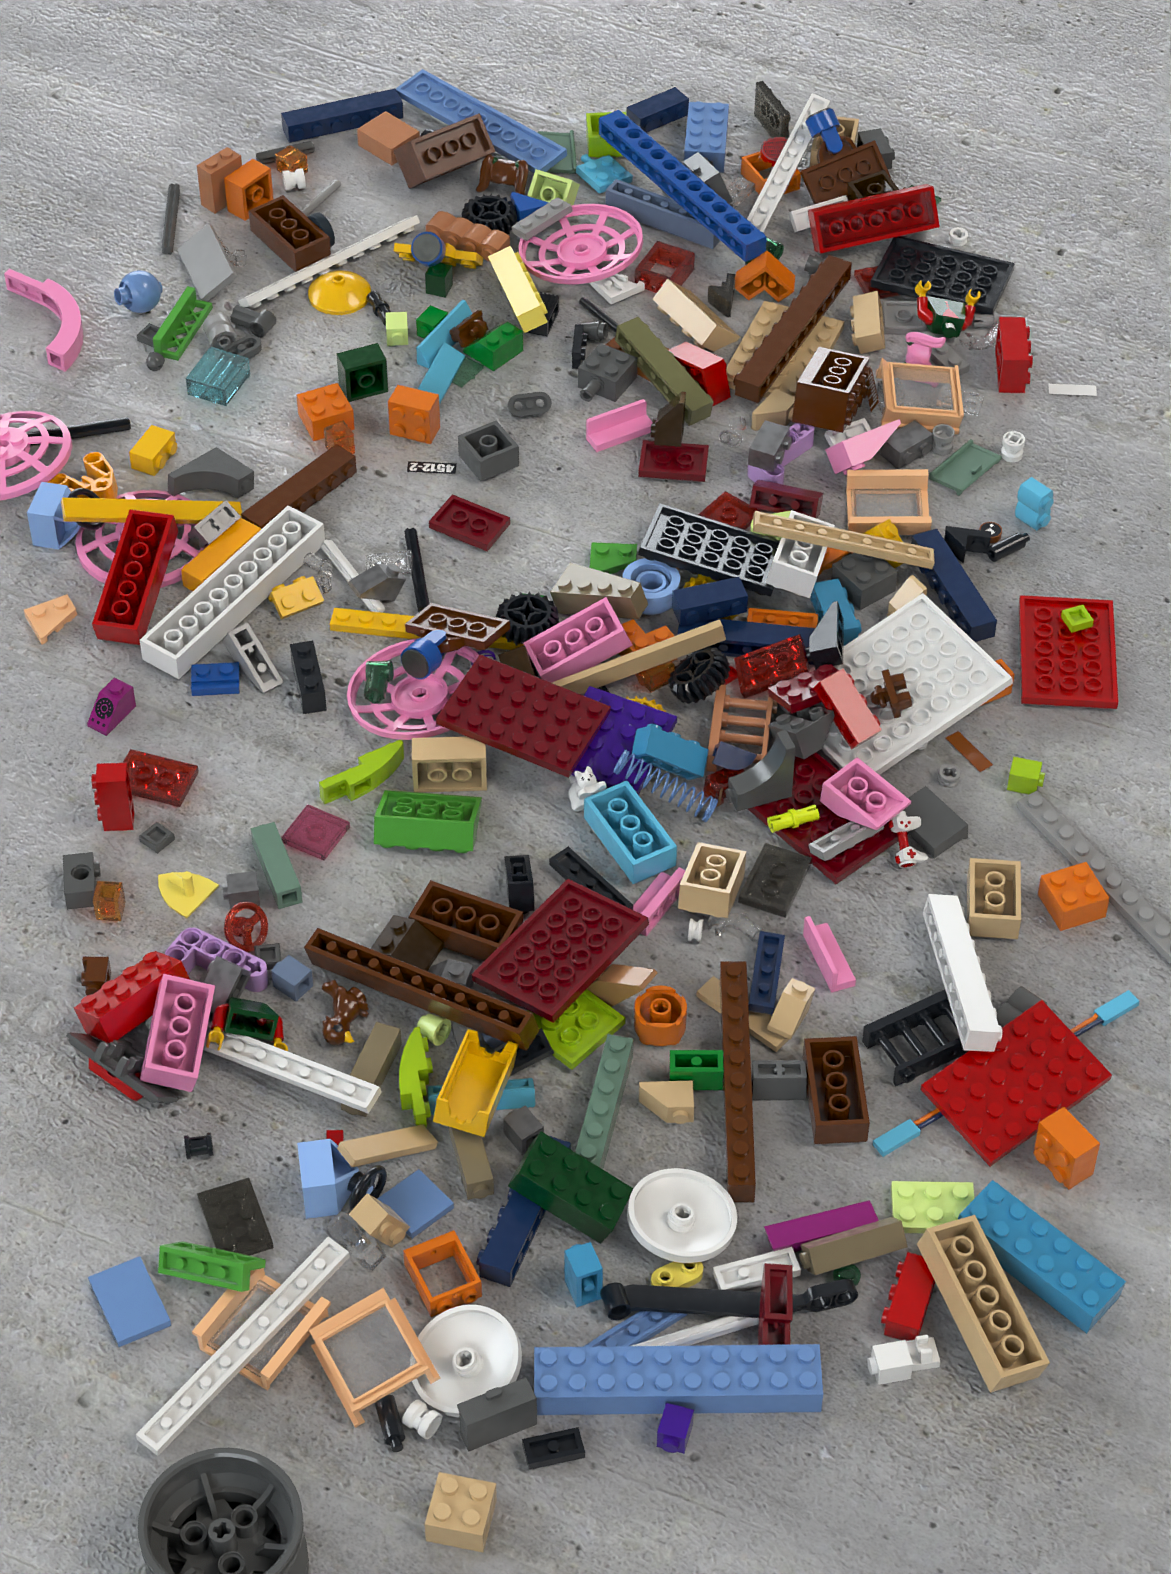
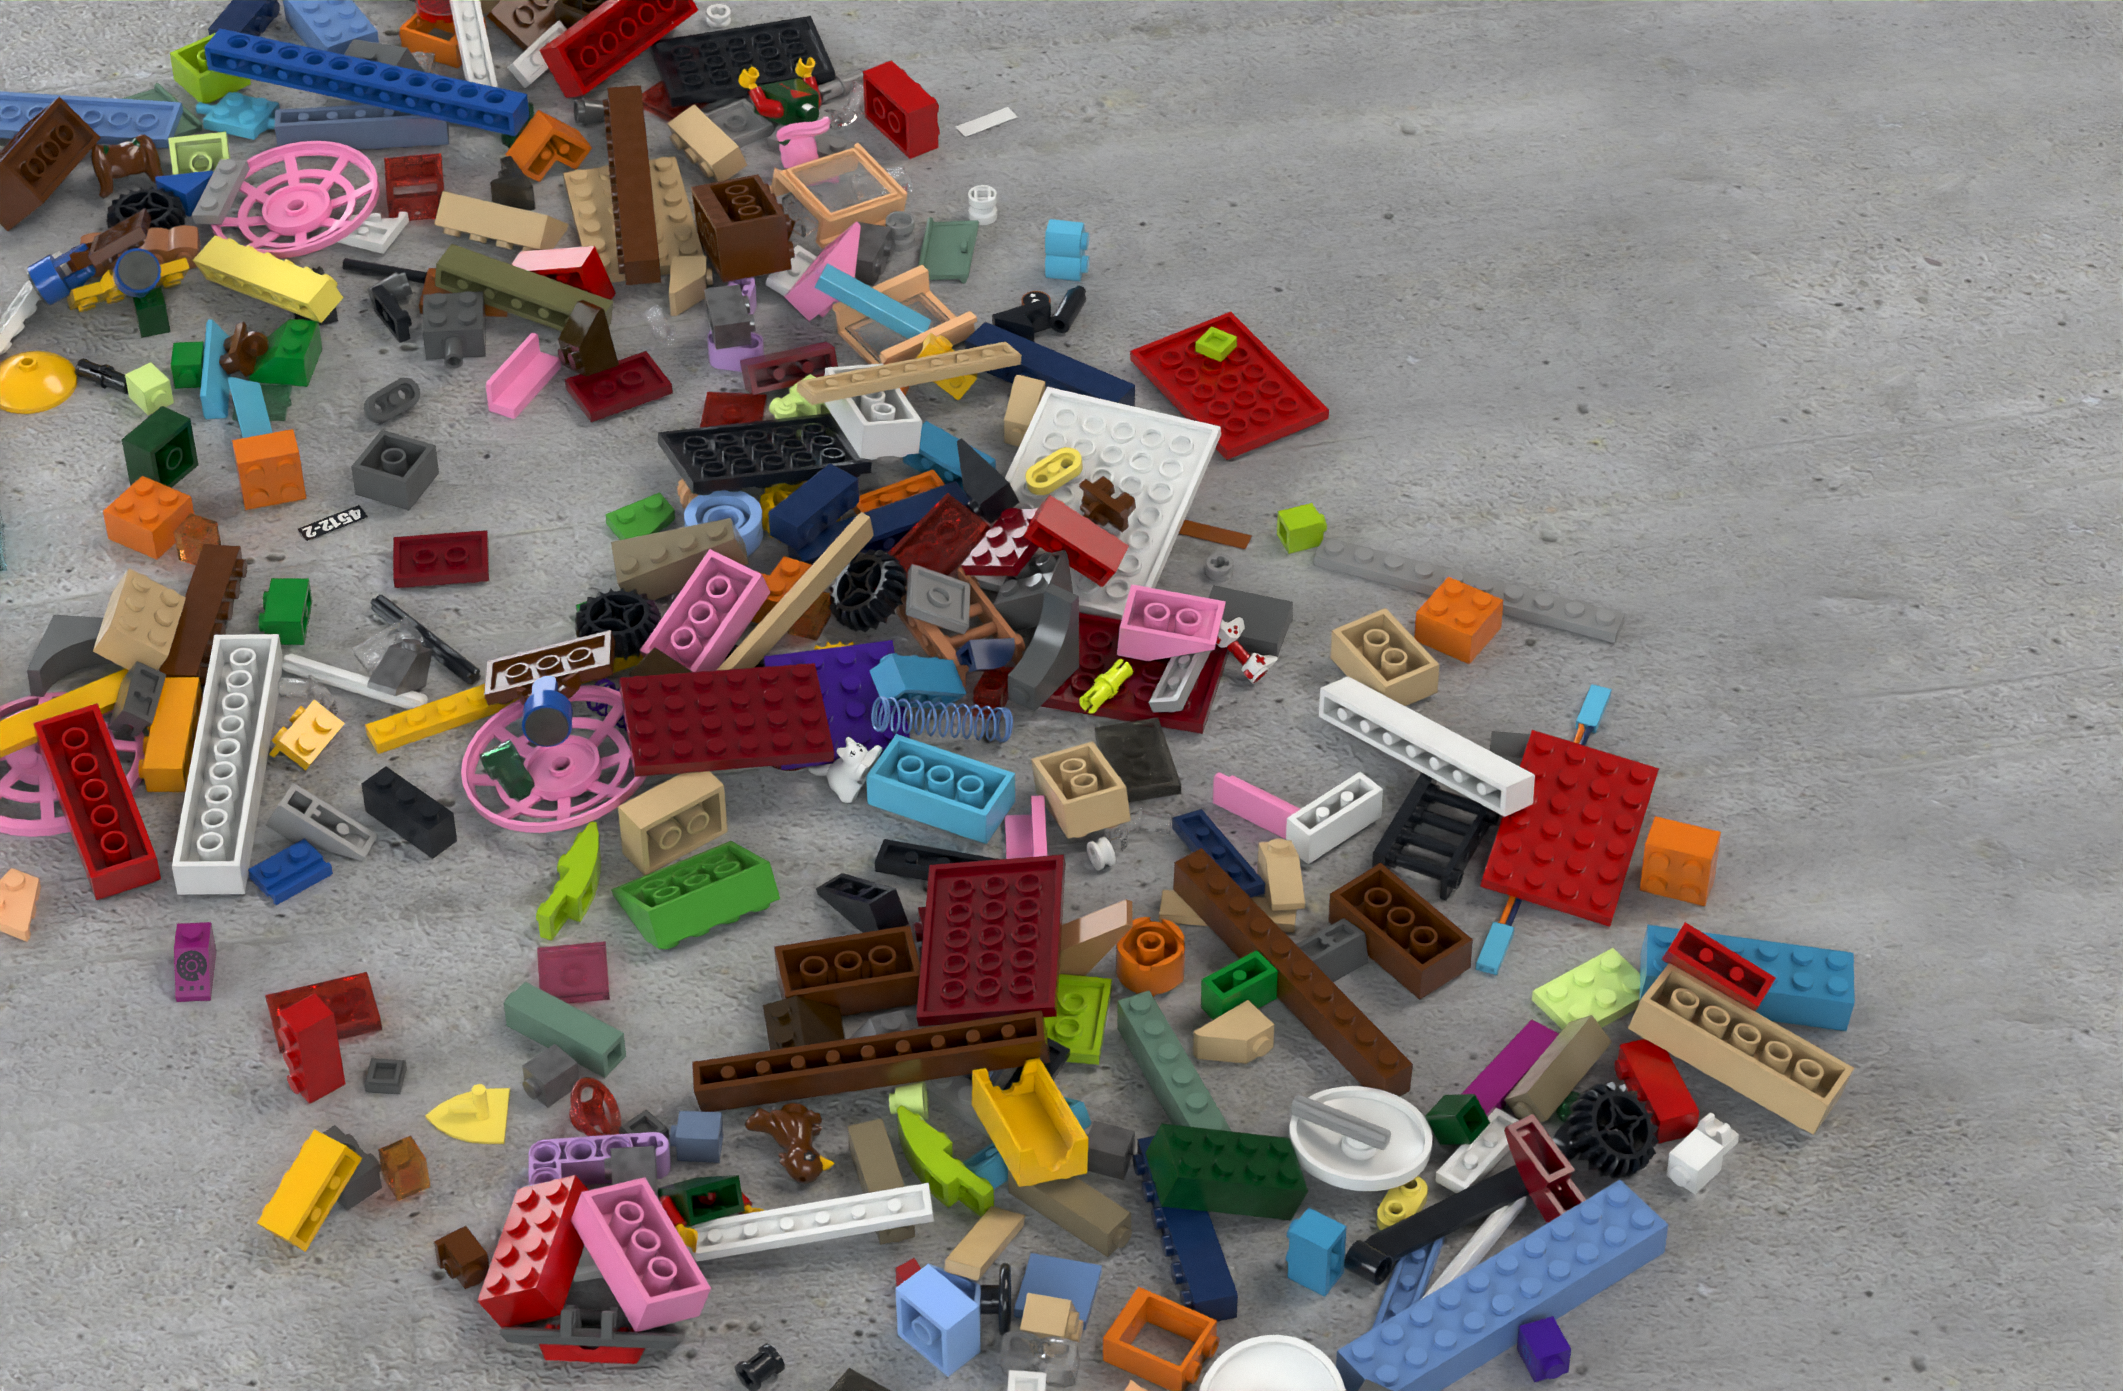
camera: 35 degrees left, 5 degrees down
(42, 884) = (309, 1190): none -> yellow brick
(251, 476) = (139, 622): none -> tan brick
(351, 511) = (287, 610): none -> green brick
(401, 230) = (51, 280): none -> plate
(672, 1197) = (1340, 1122): none -> light grey axle
(734, 703) = (938, 599): none -> light grey tile
(755, 1239) = (1457, 1119): none -> dark green brick
(847, 1318) = (1612, 1108): none -> black gear
(862, 988) = (1334, 817): none -> white brick
(865, 578) = (953, 405): dark grey brick -> none
(869, 479) = (871, 302): none -> medium azure slope
(879, 652) = (1052, 471): none -> light yellow plate
(1002, 1238) = (1718, 967): none -> red brick

